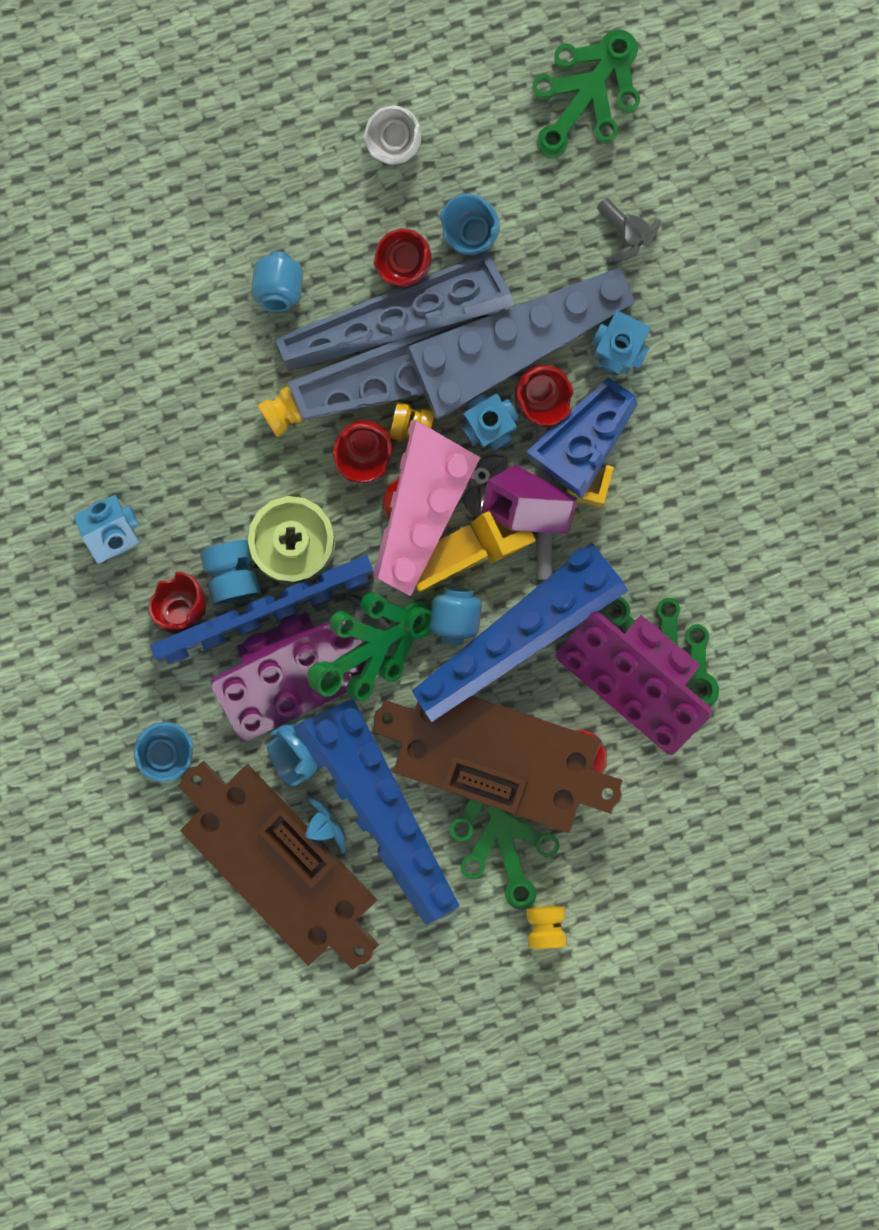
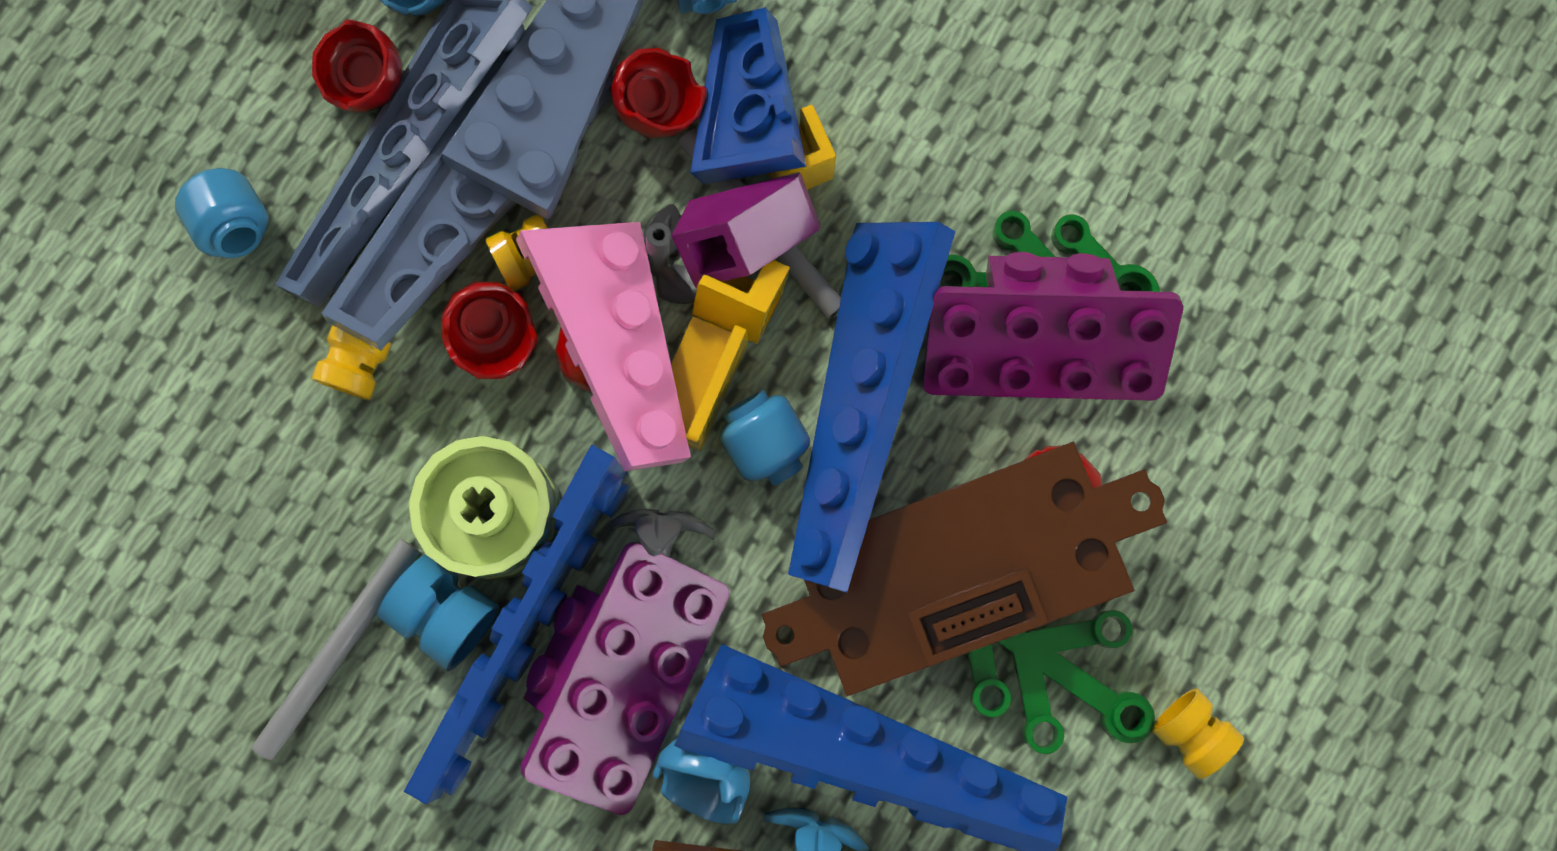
camera: 40 degrees left, 5 degrees down
(107, 528) = (234, 684): dark azure brick -> none
(167, 548) = (334, 651): none -> light grey bar
(177, 603) = (402, 706): red hair -> none
(410, 624) = (720, 490): green plant -> none
(489, 436) = (620, 192): dark azure brick -> none

